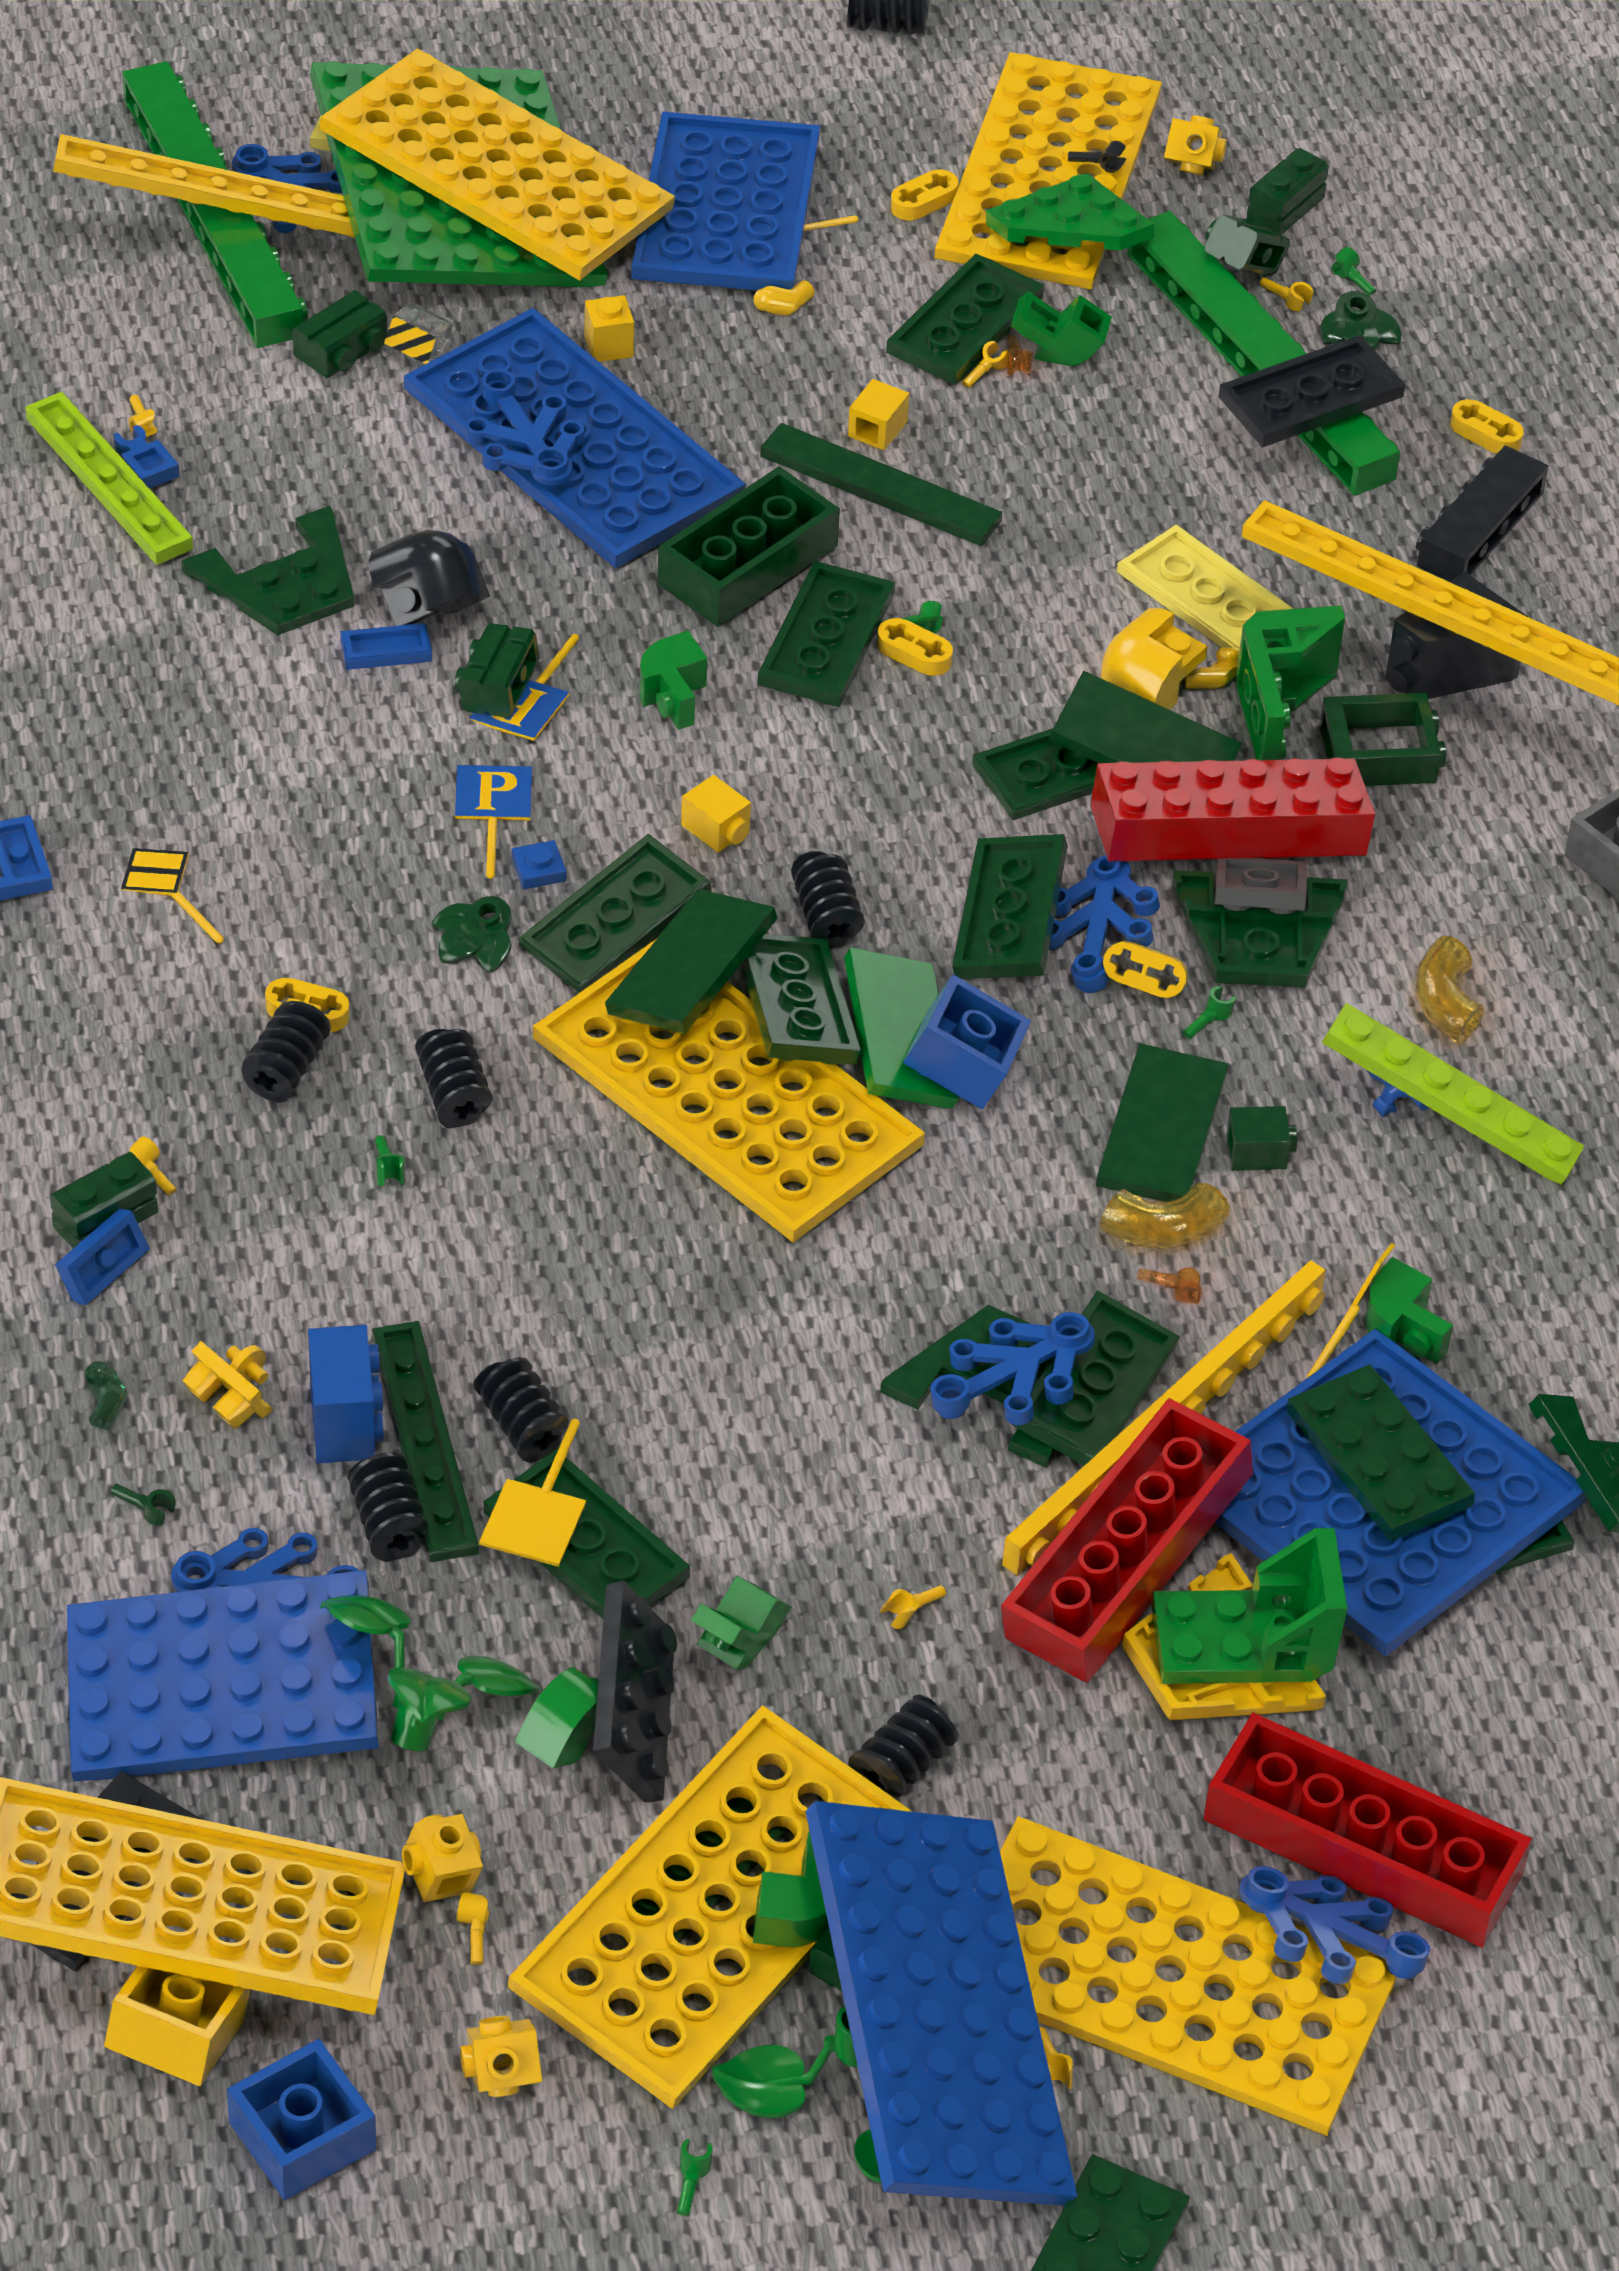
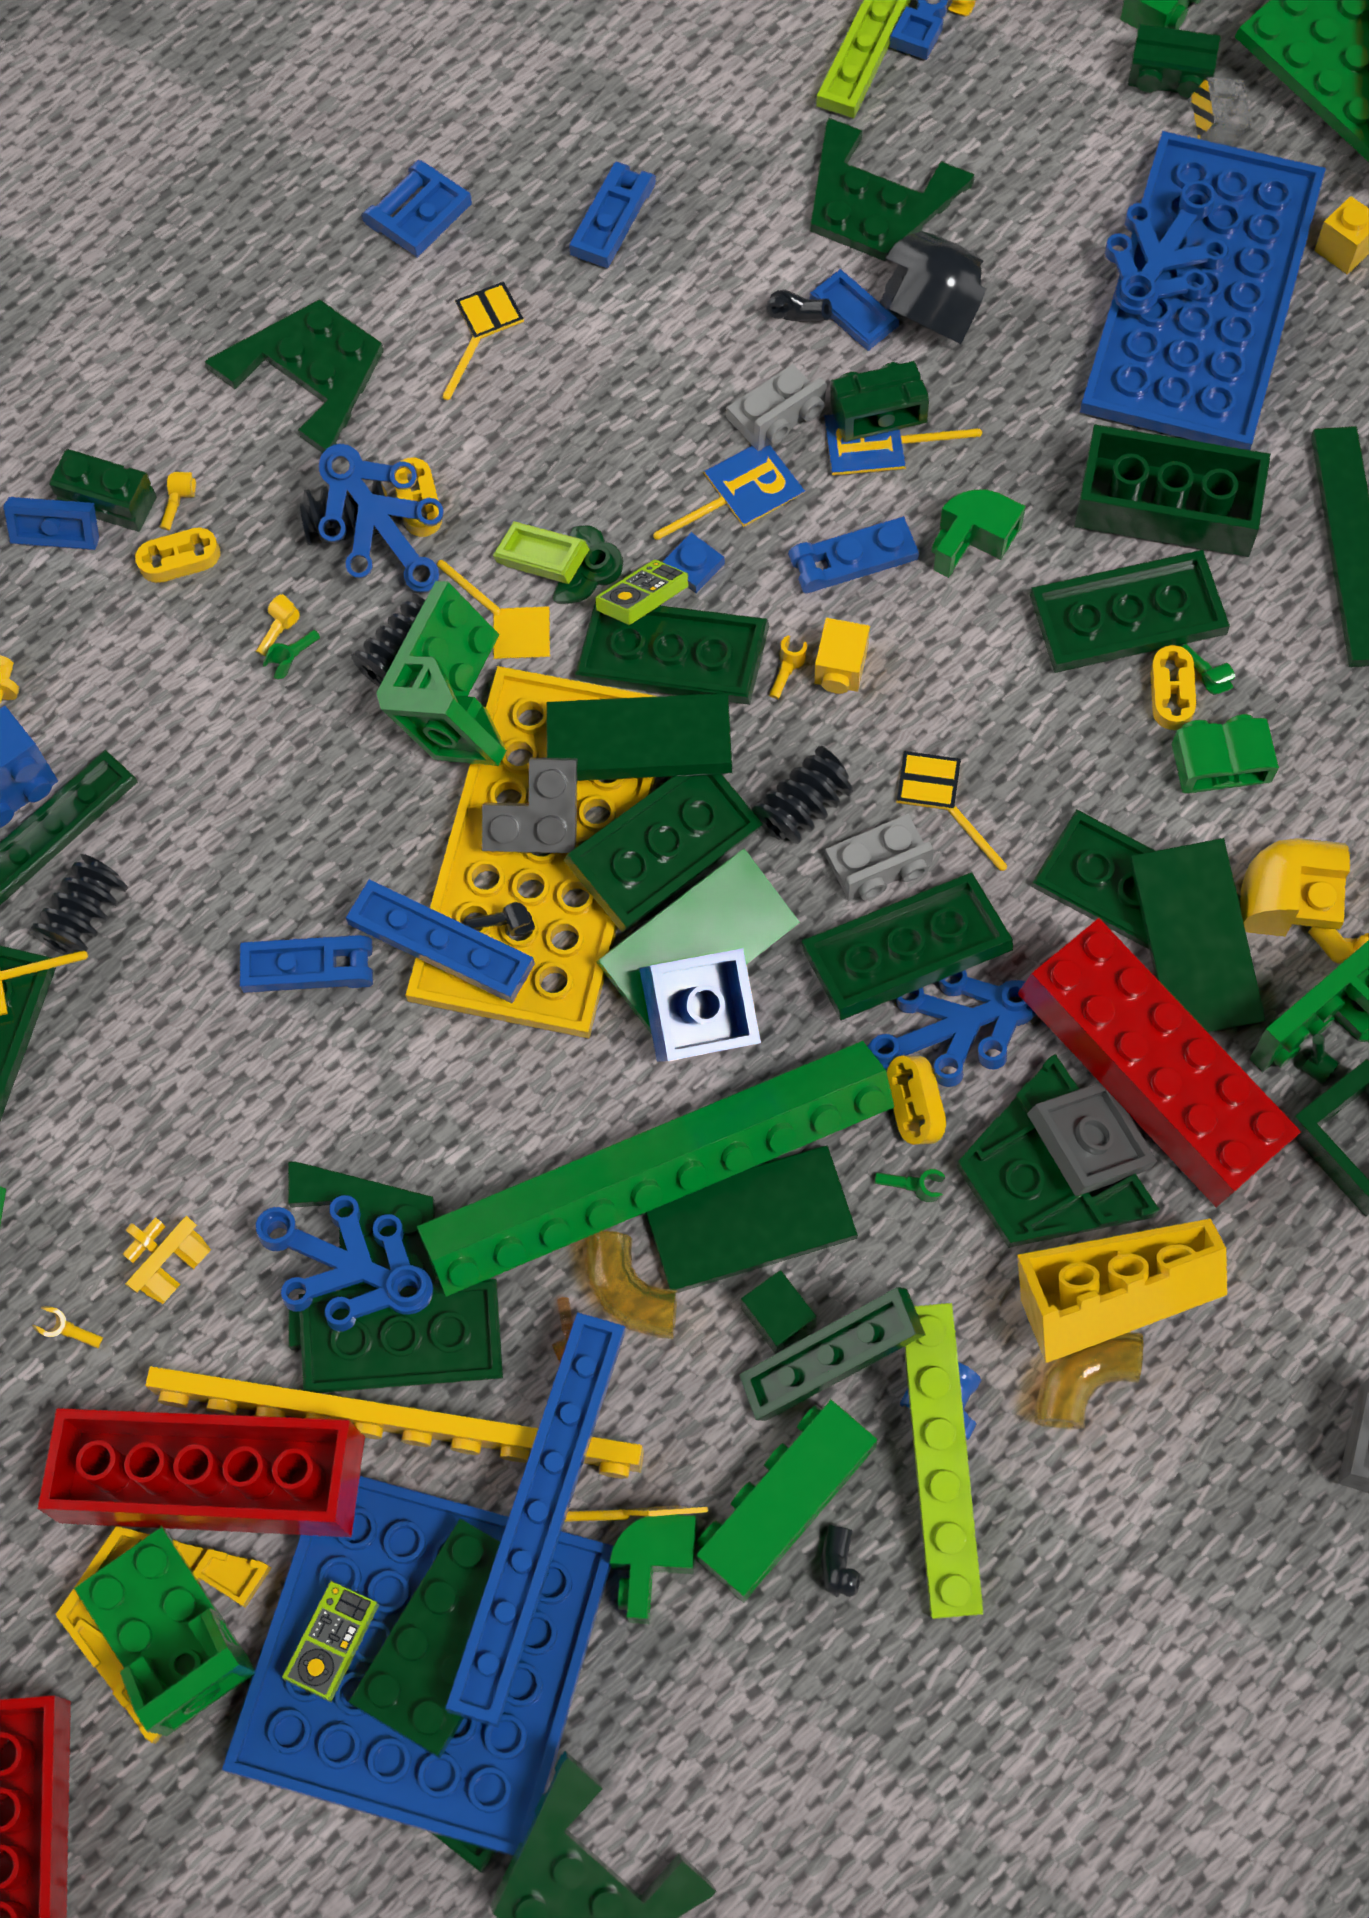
camera: 65 degrees right, 20 degrees up
(94, 1000) = (317, 352): none -> dark green wing
(141, 741) = (611, 215): none -> blue plate
(223, 1194) = (177, 555): none -> yellow beam
(321, 1021) = (375, 511): none -> blue plant
(343, 1146) = (285, 616): none -> yellow hand
(350, 678) = (797, 308): none -> black arm
(439, 737) = (777, 407): none -> light grey bracket
(444, 948) = (541, 552): none -> lime tile
(496, 1006) = (522, 630): none -> yellow piece
(547, 900) = (641, 591): none -> tile
(576, 1058) = (433, 677): none -> green bracket
(623, 764) = (854, 554): none -> blue plate
(686, 852) = (788, 661): none -> yellow hand
(703, 1289) = (305, 963): none -> blue plate
(718, 1047) = (546, 822): none -> flat silver plate
(770, 1174) = (440, 941): none -> blue plate
(790, 1119) = (514, 915): none -> black hand
(872, 830) = (933, 783): none -> piece
(897, 1500) = (150, 1276): none -> yellow hips
(913, 889) = (879, 858): none -> light grey bracket
(1000, 646) = (1224, 754): none -> green brick
(1084, 1140) = (655, 1167): none -> green brick
(1301, 736) = (1320, 1063): none -> dark green hand
(1322, 1508) = (330, 1641): none -> tile
(1326, 1105) = (832, 1354): none -> dark green plate
(1330, 1334) = (536, 1521): none -> blue plate
(1390, 928) = (1119, 1284): none -> yellow wedge
(1416, 1203) = (786, 1499): none -> green brick
(1485, 1213) = (834, 1560): none -> black arm

